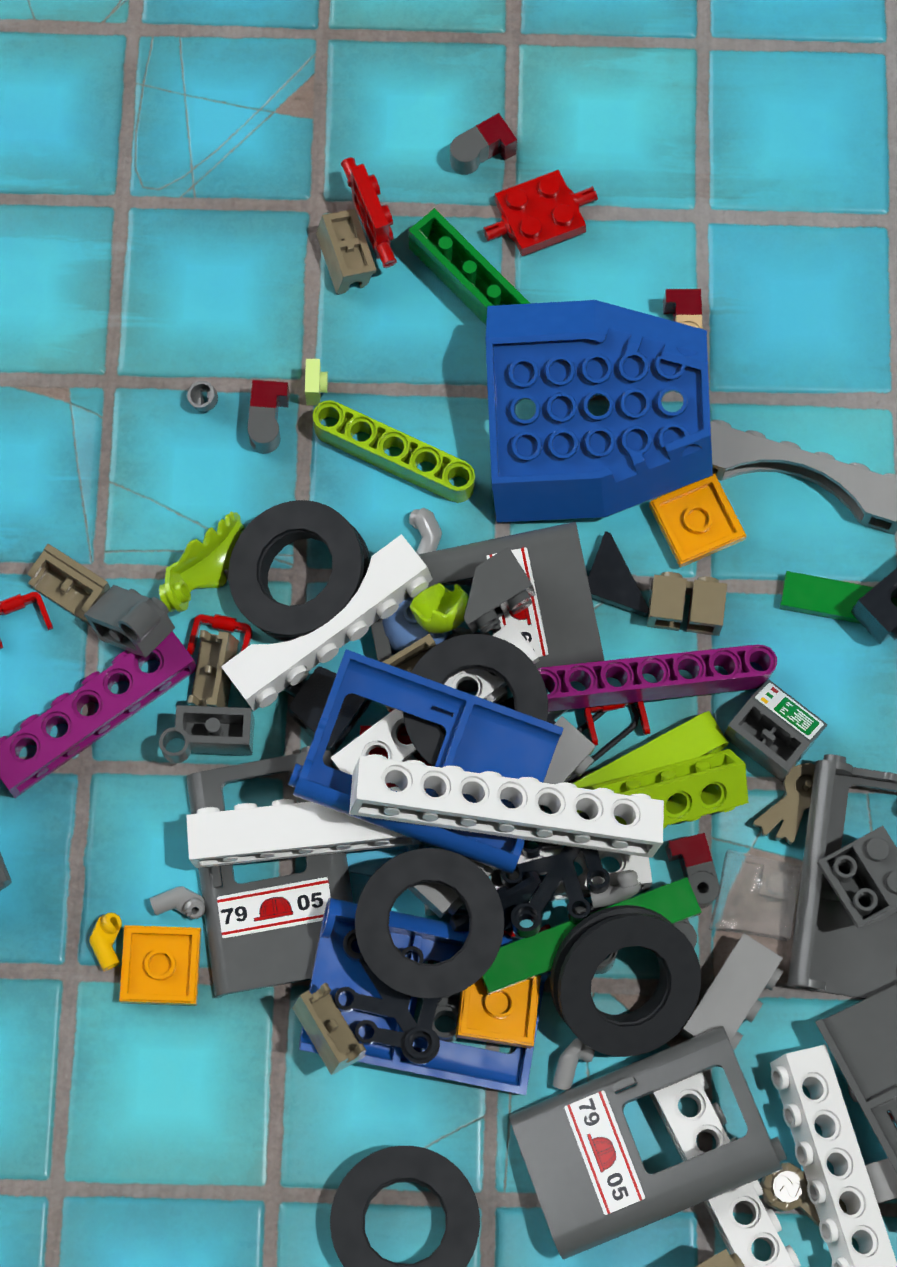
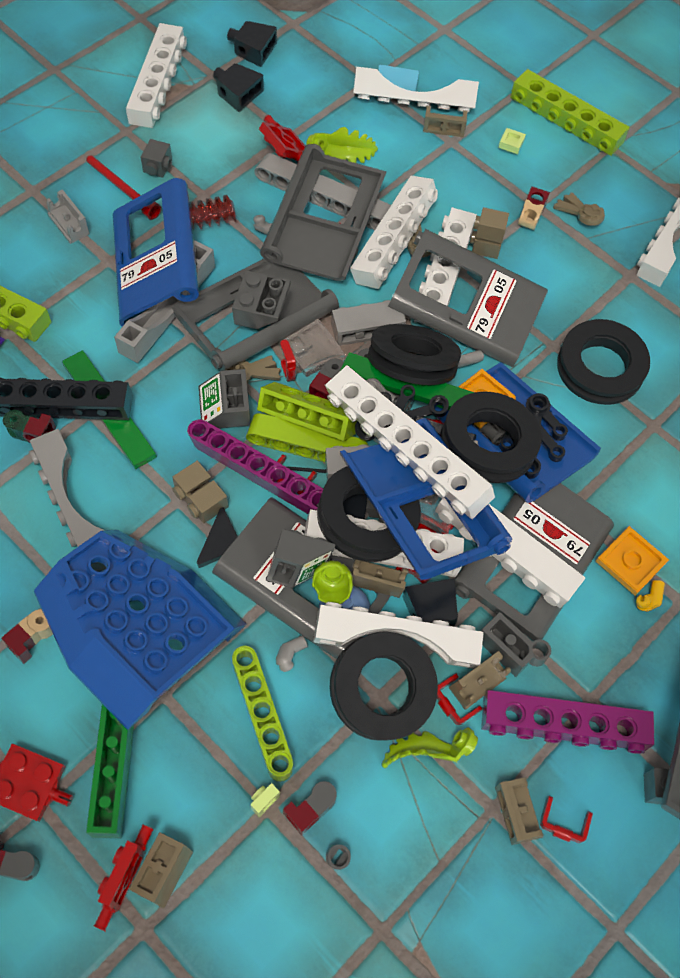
camera: 140 degrees left, 10 degrees down
(130, 620) = (507, 745): dark grey hinge -> none
(180, 899) = (594, 583): light grey arm -> none
(328, 1029) = (579, 441): dark tan hinge -> none
(697, 520) = (150, 523): light orange plate -> none
(760, 840) = (288, 364): none -> red piece

